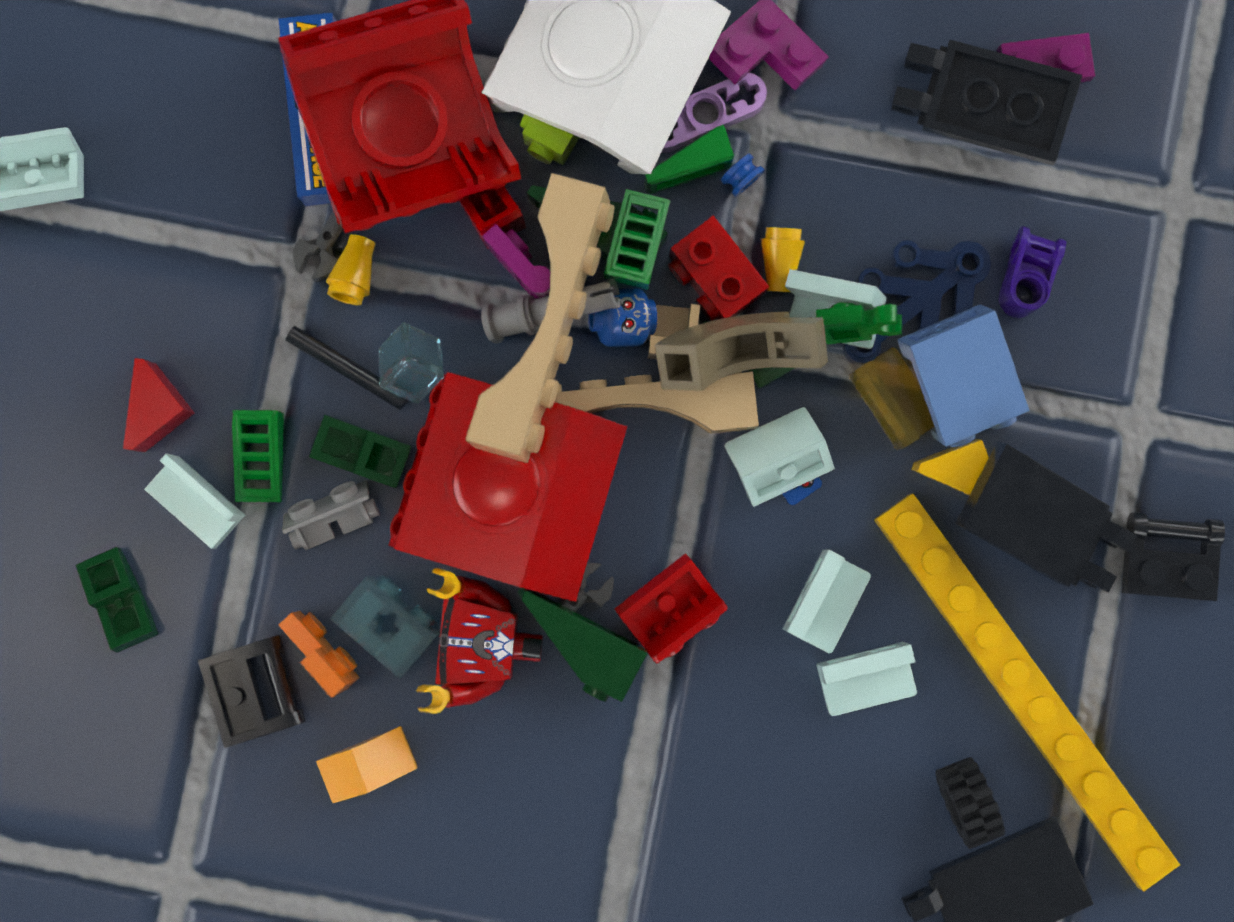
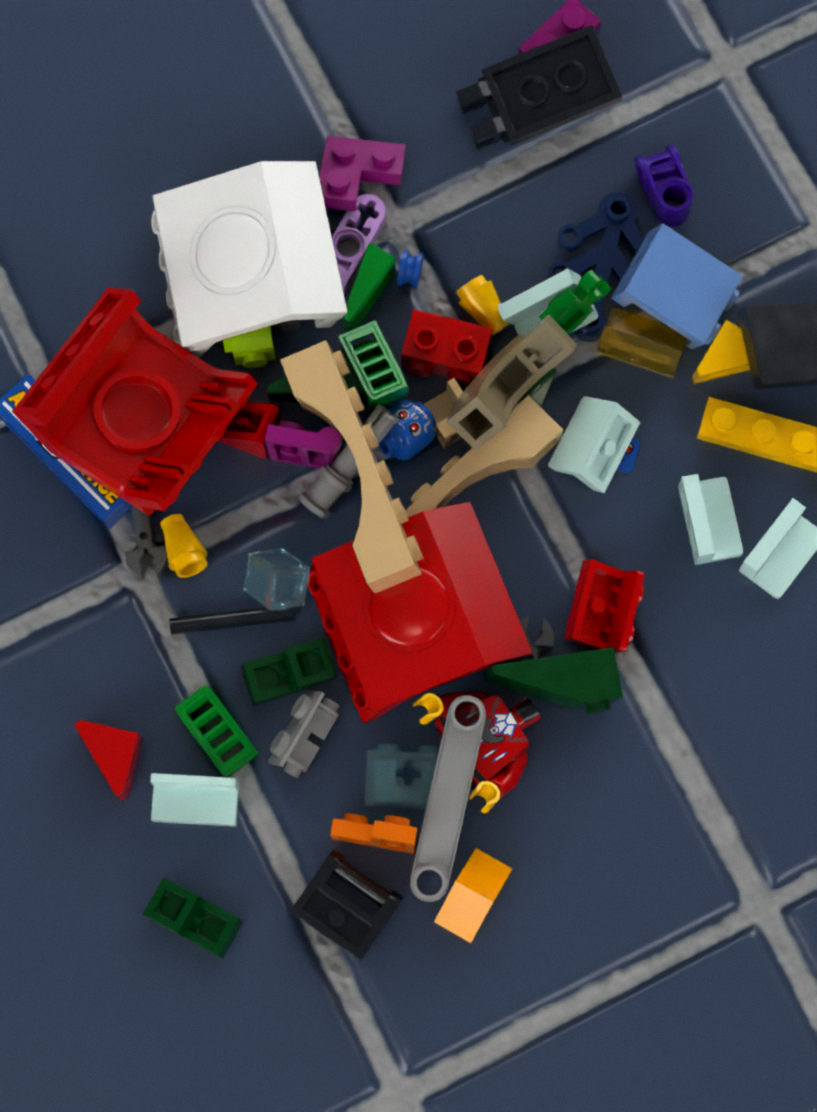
camera: 30 degrees left, 10 degrees down
(399, 675) = (448, 798): none -> light grey piece

